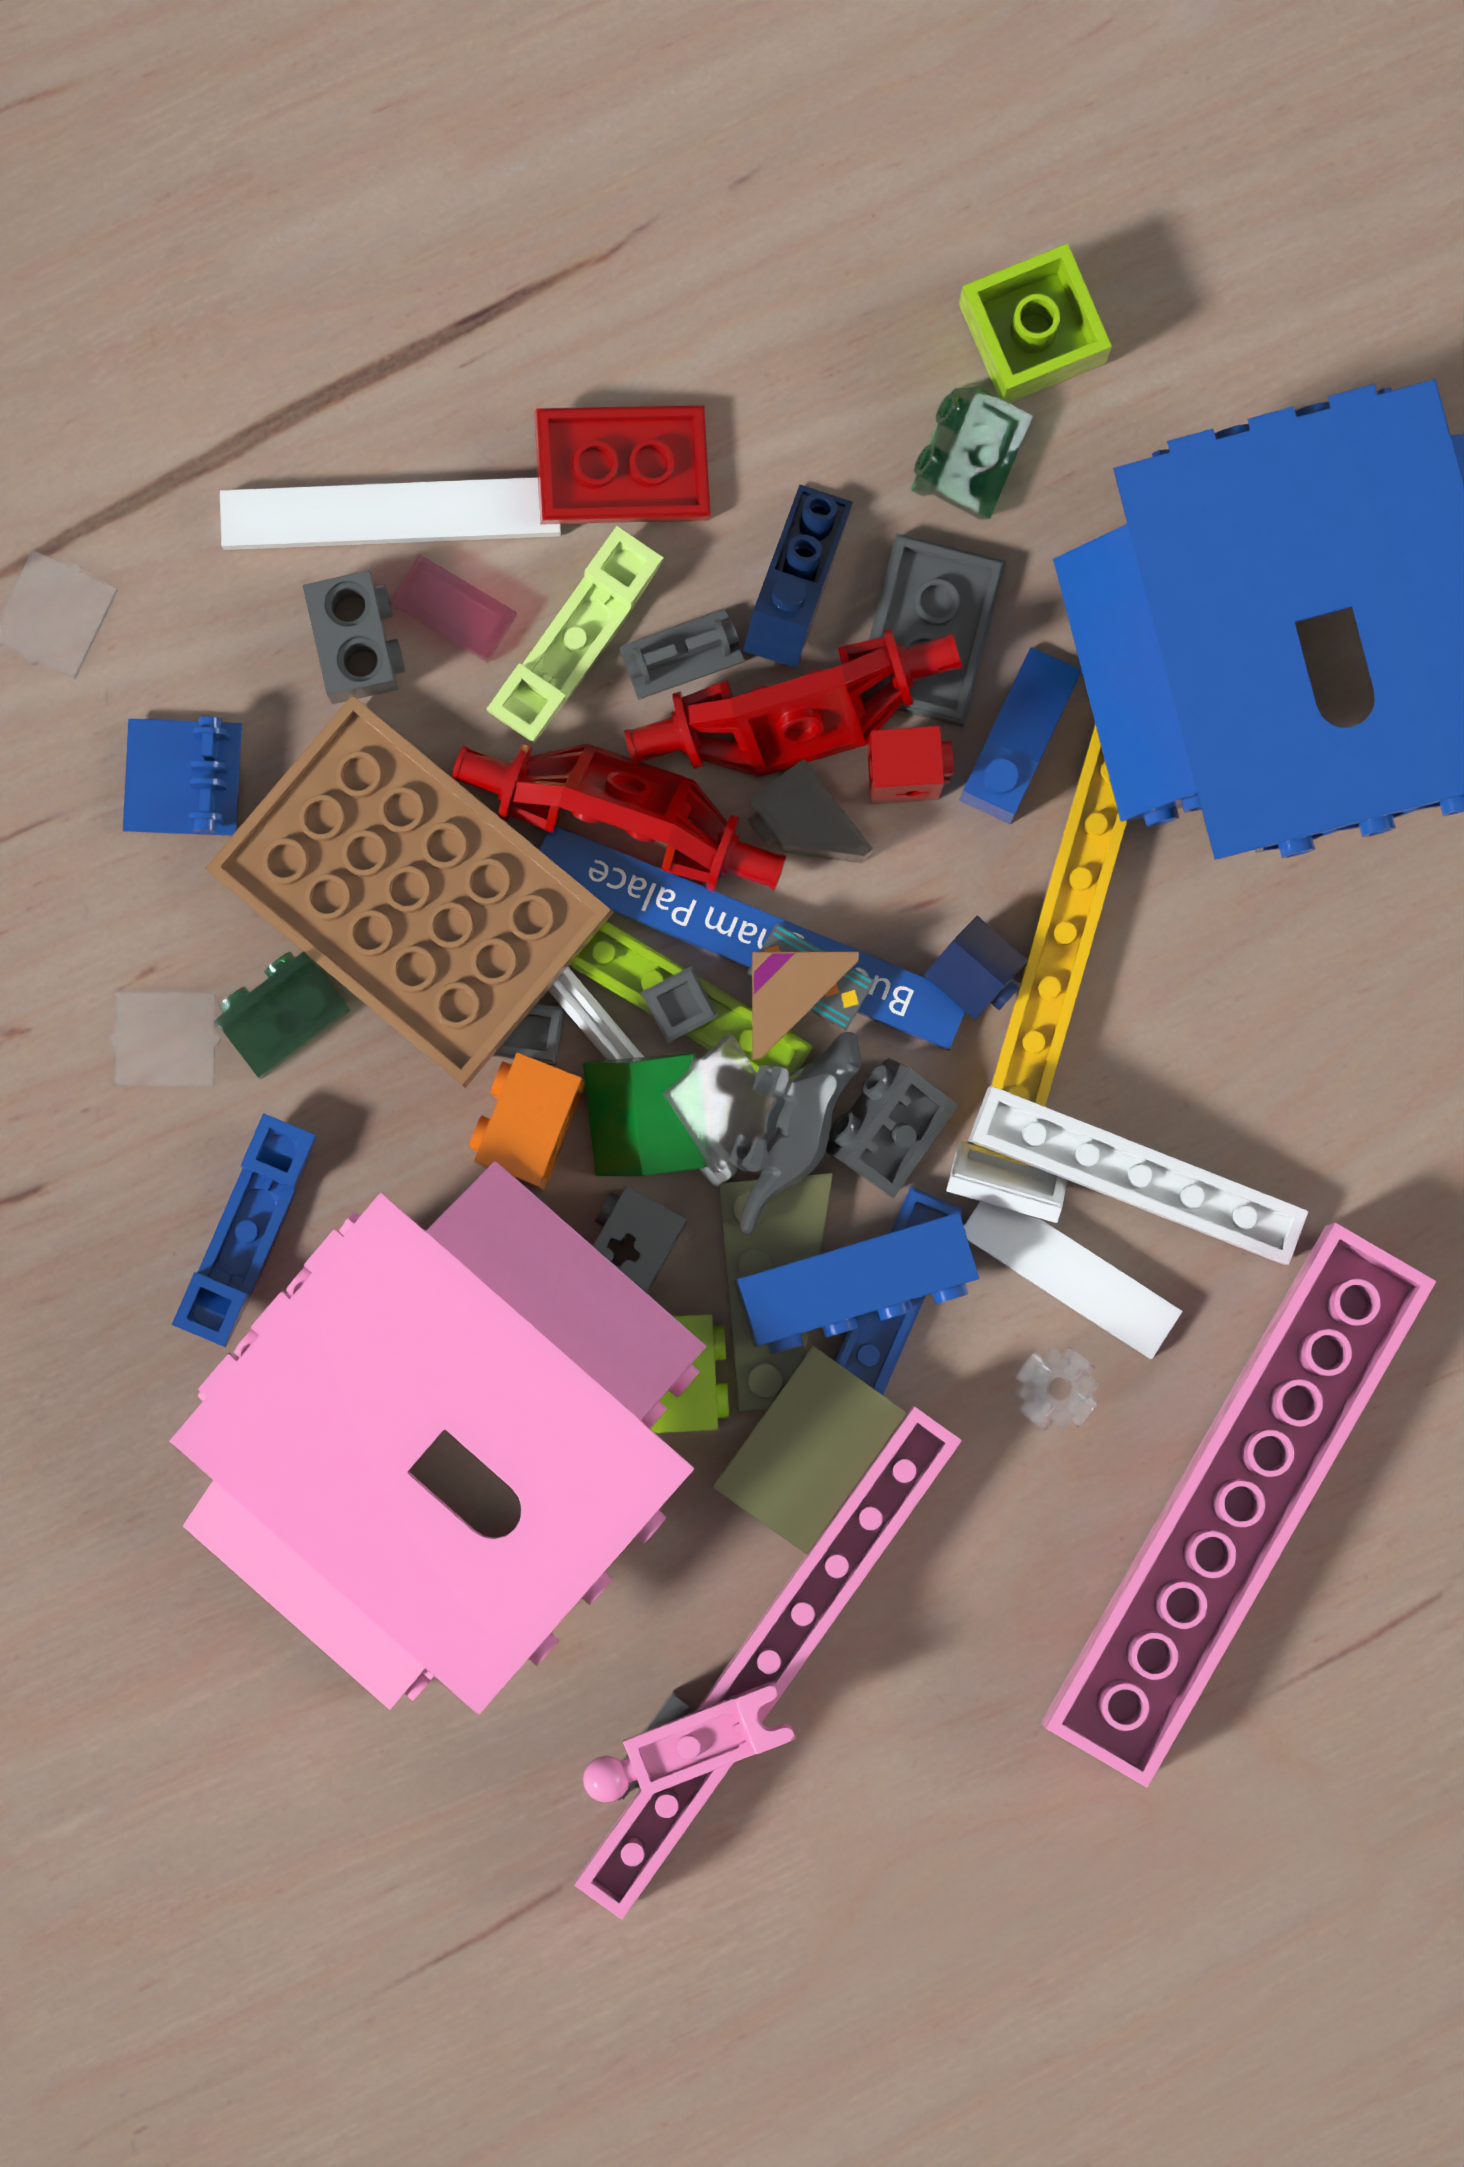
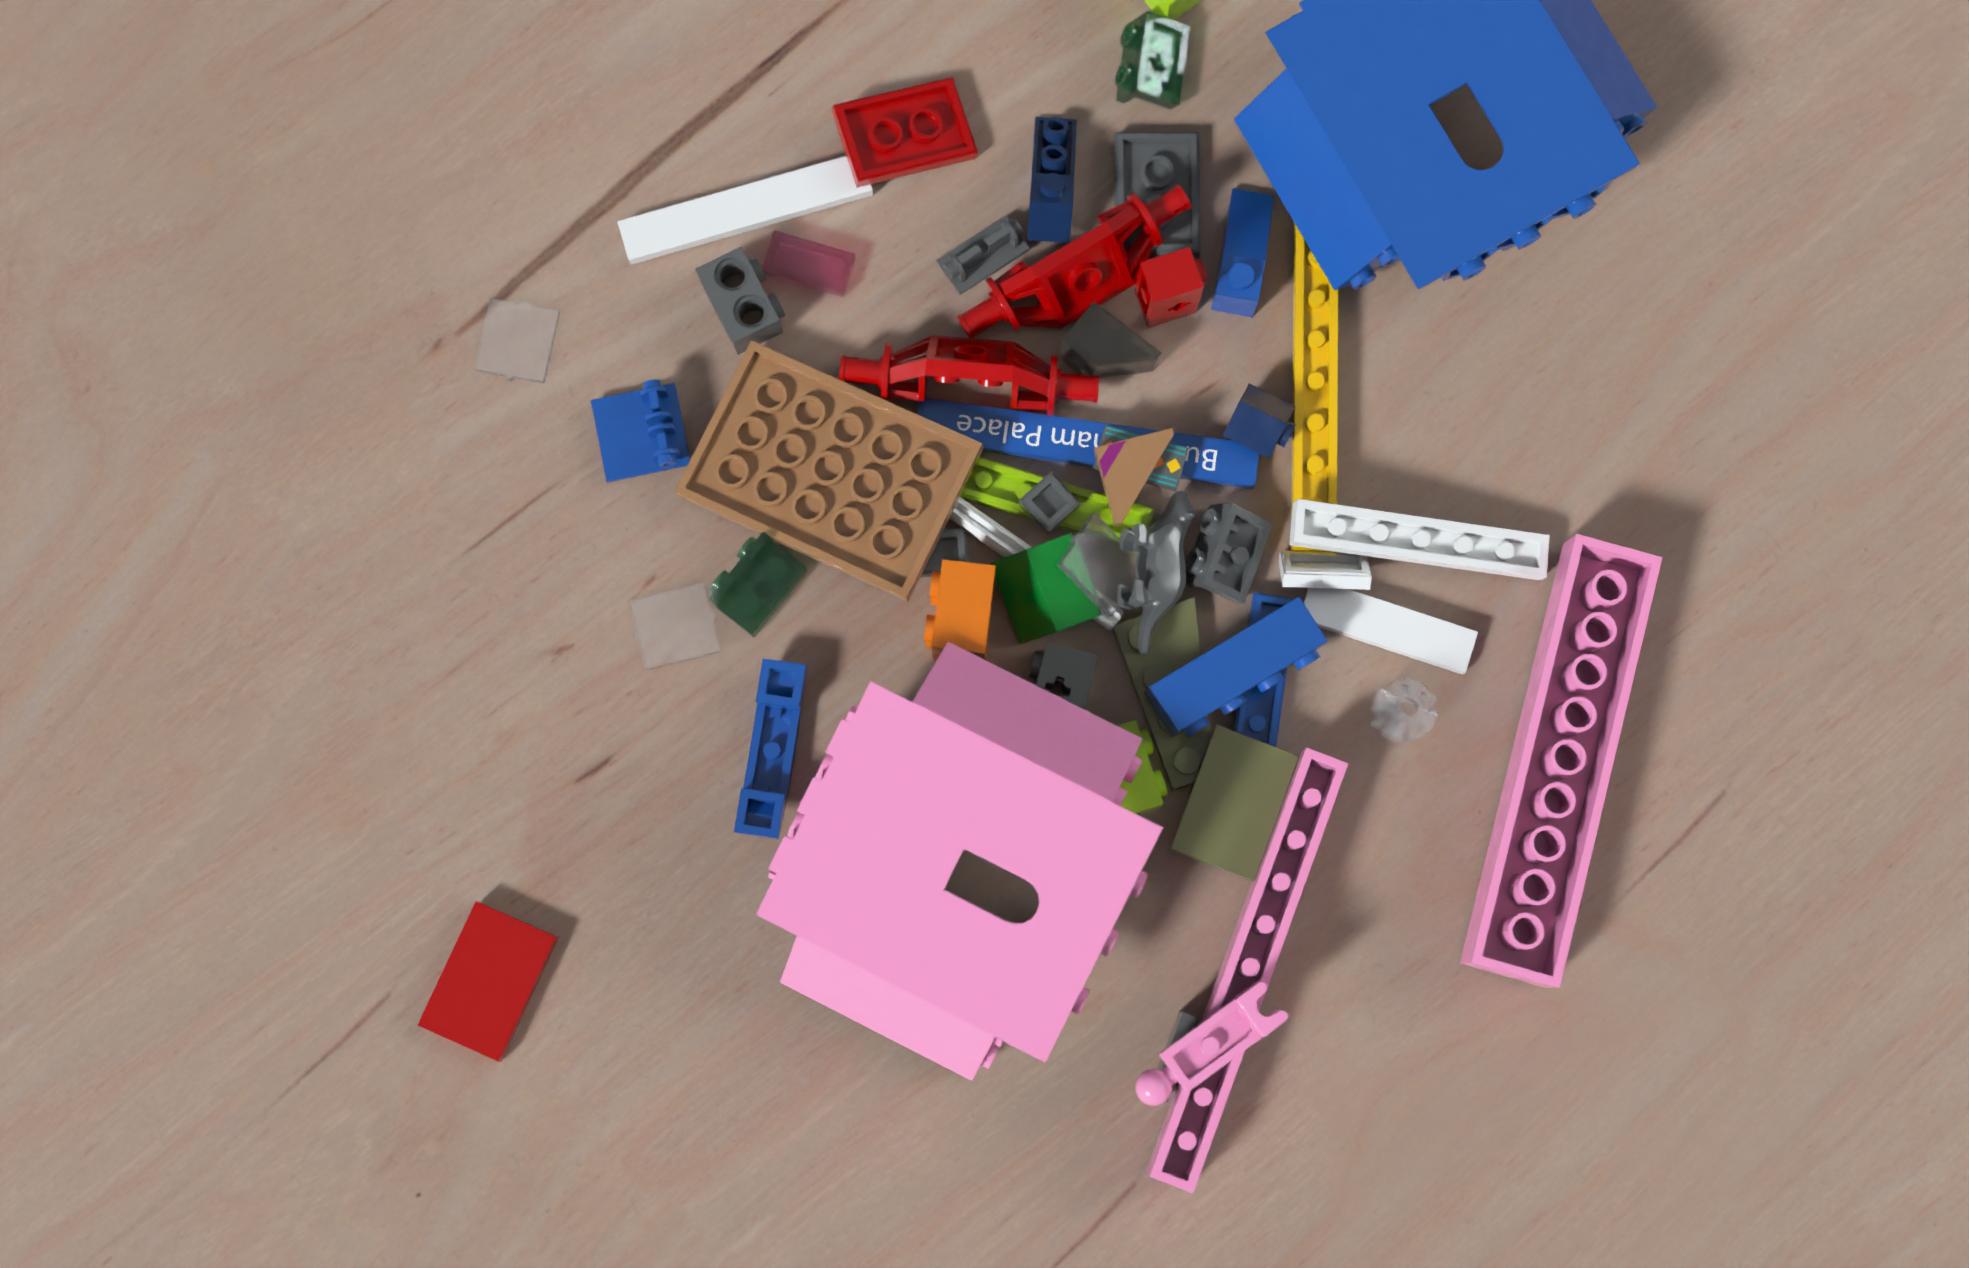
camera: 15 degrees left, 5 degrees down
(576, 635) = (904, 258): yellowish green slope -> none

